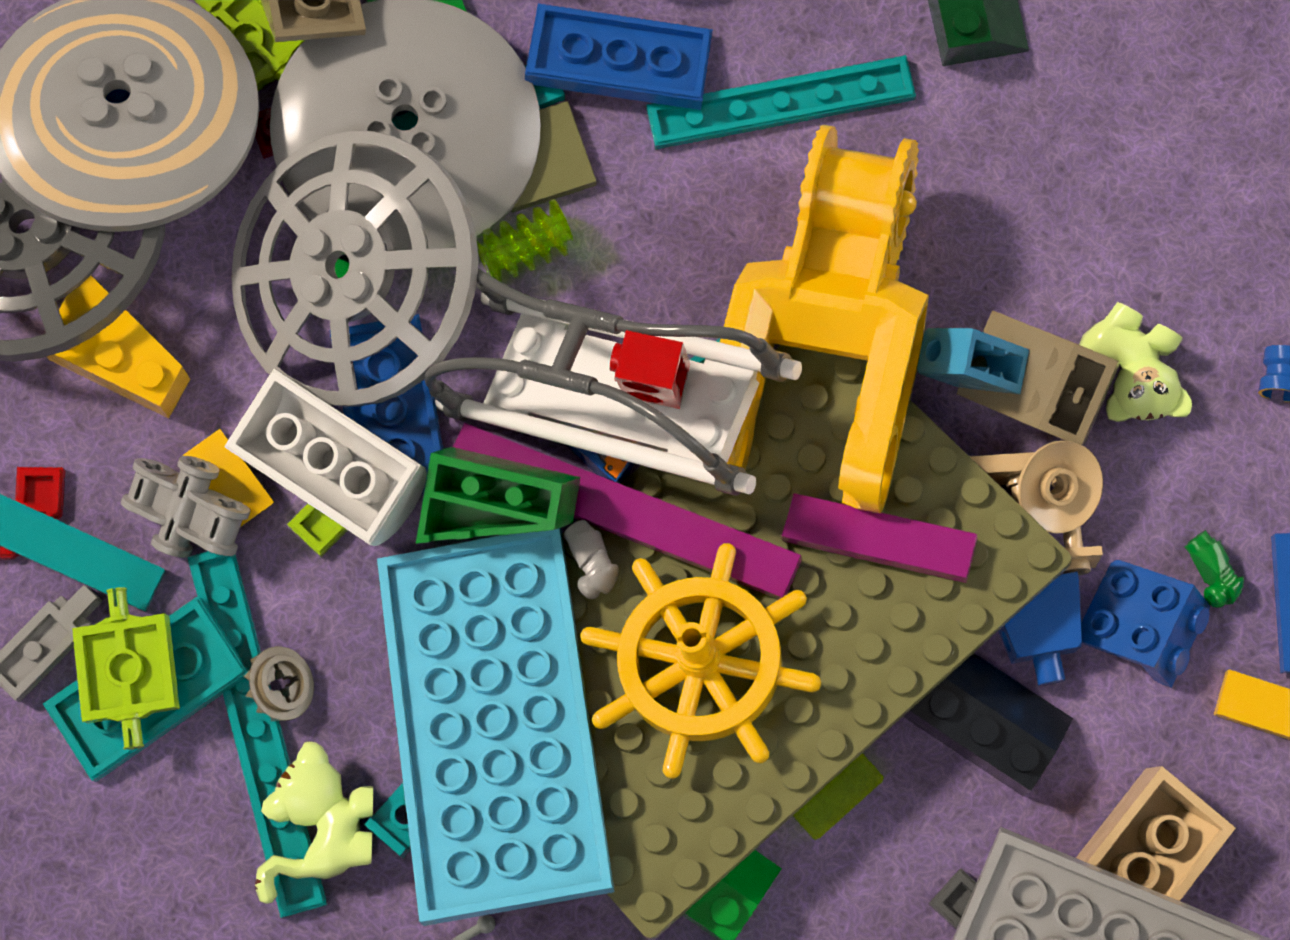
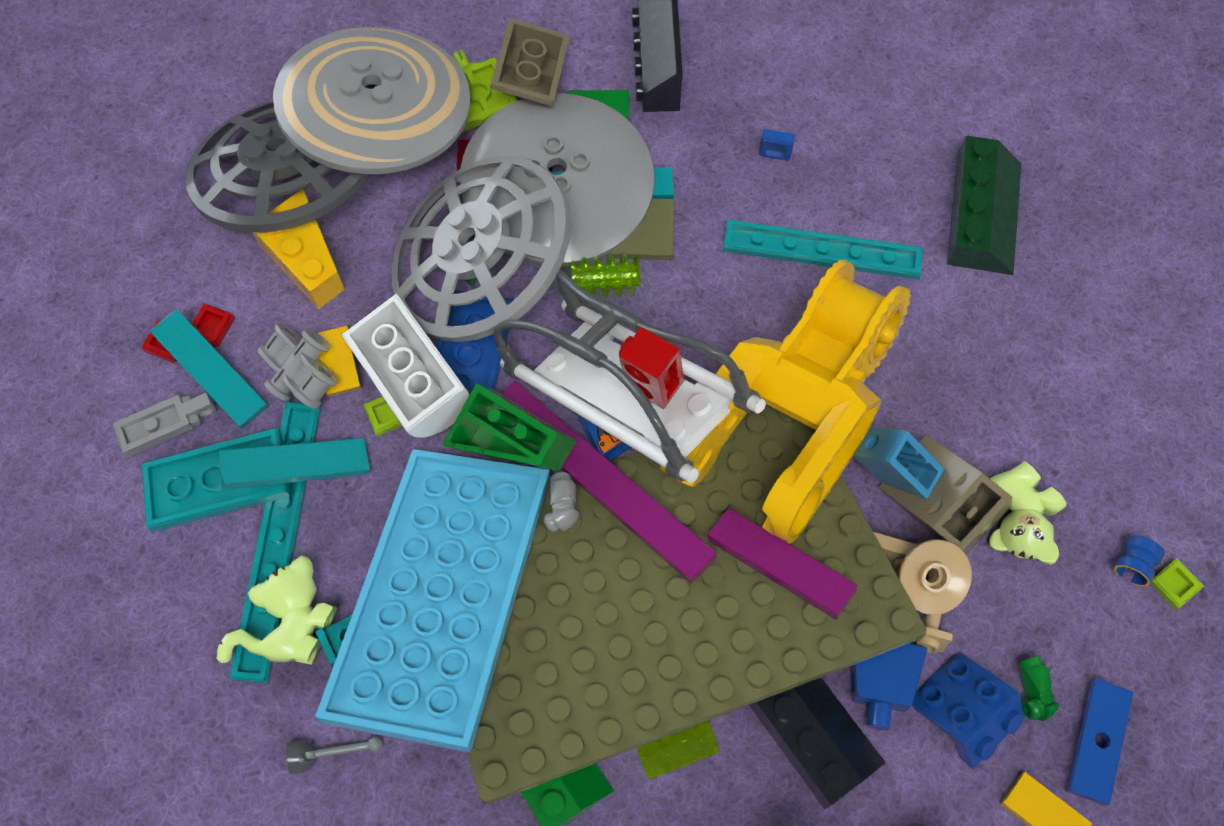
camera: 25 degrees right, 10 degrees down
(125, 668) = (193, 456): lime plate -> none
(241, 633) = (292, 463): none -> teal tile
(280, 664) = (316, 498): dark tan gear -> none
(618, 56) = (720, 183): blue tile -> none
(699, 659) = (609, 601): yellow piece -> none

